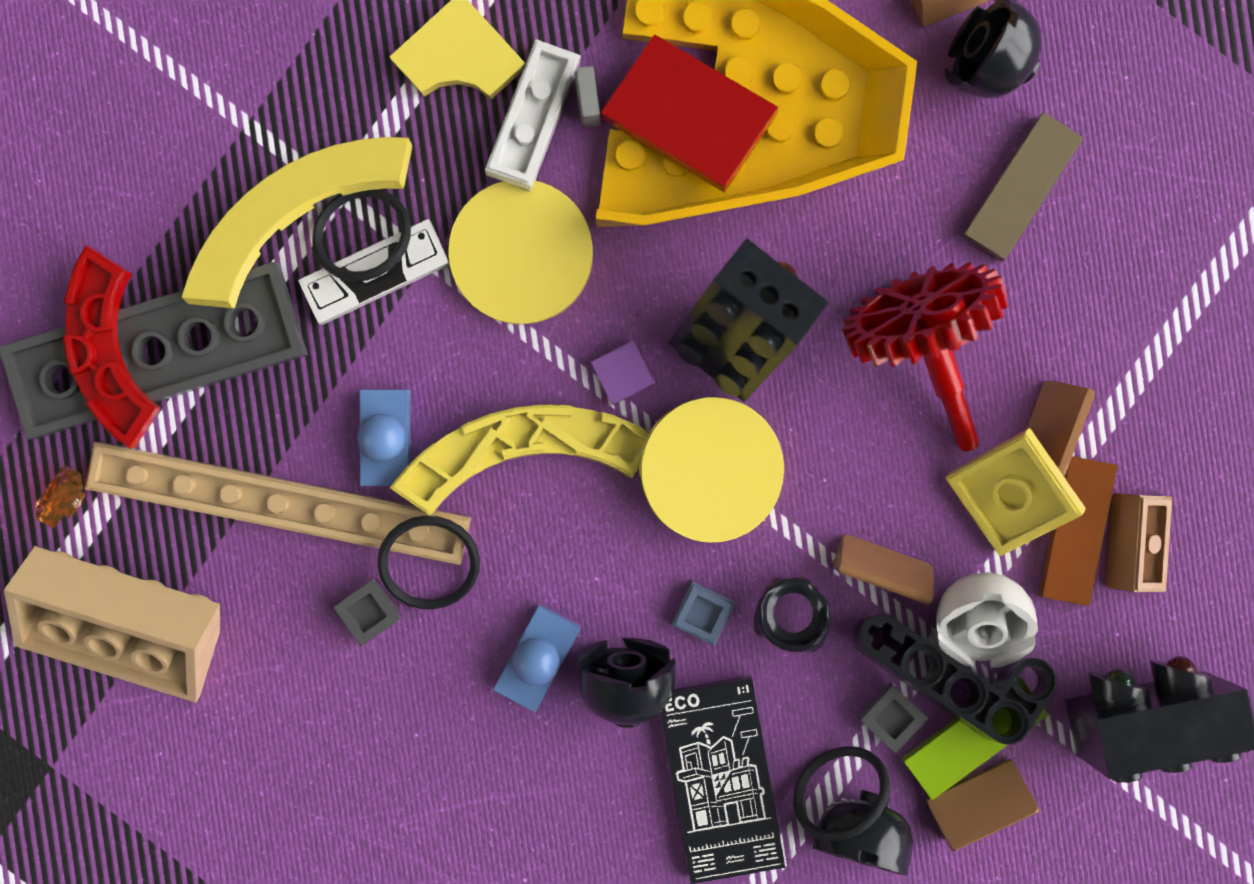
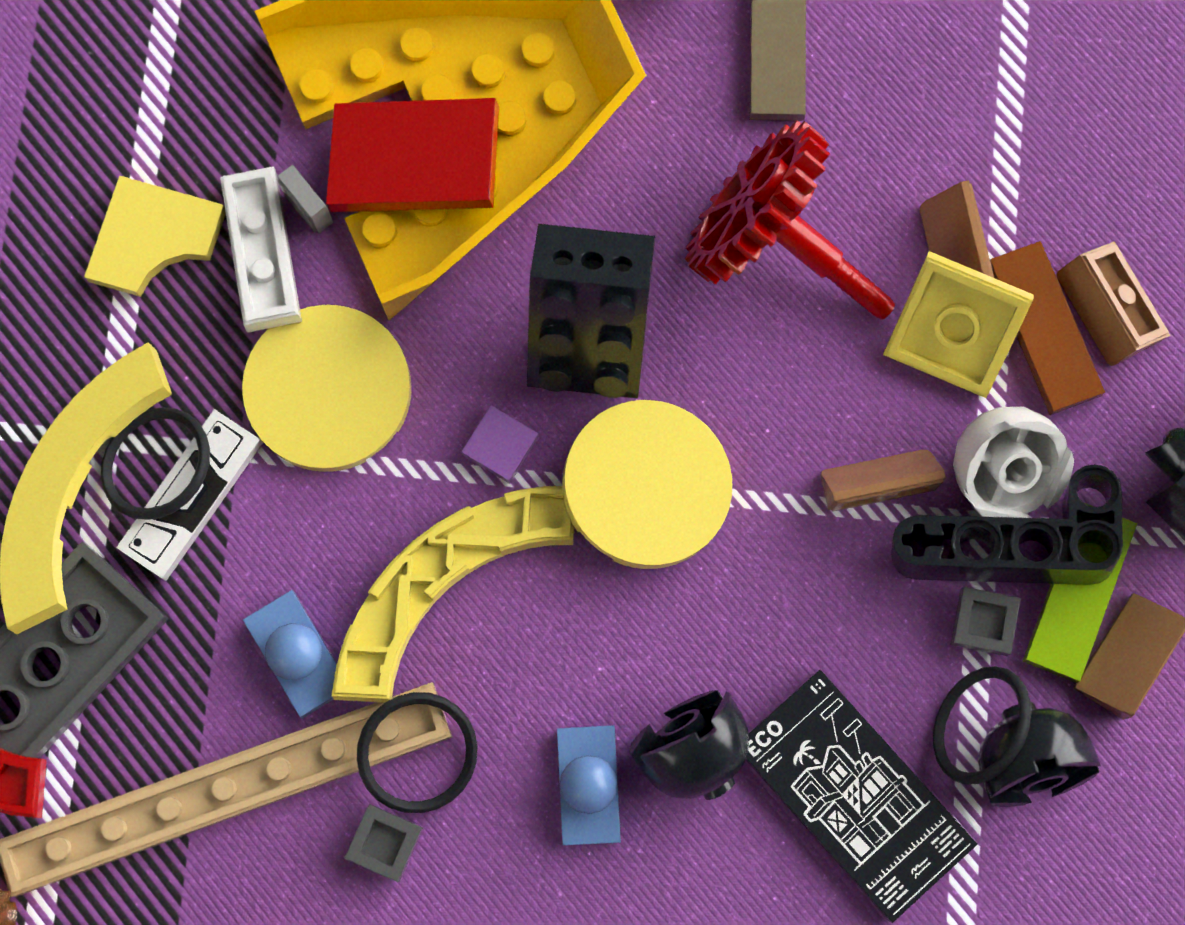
camera: 30 degrees left, 10 degrees down
(703, 613) = (729, 635): sand blue tile -> none
(812, 636) = (845, 597): black piece -> none

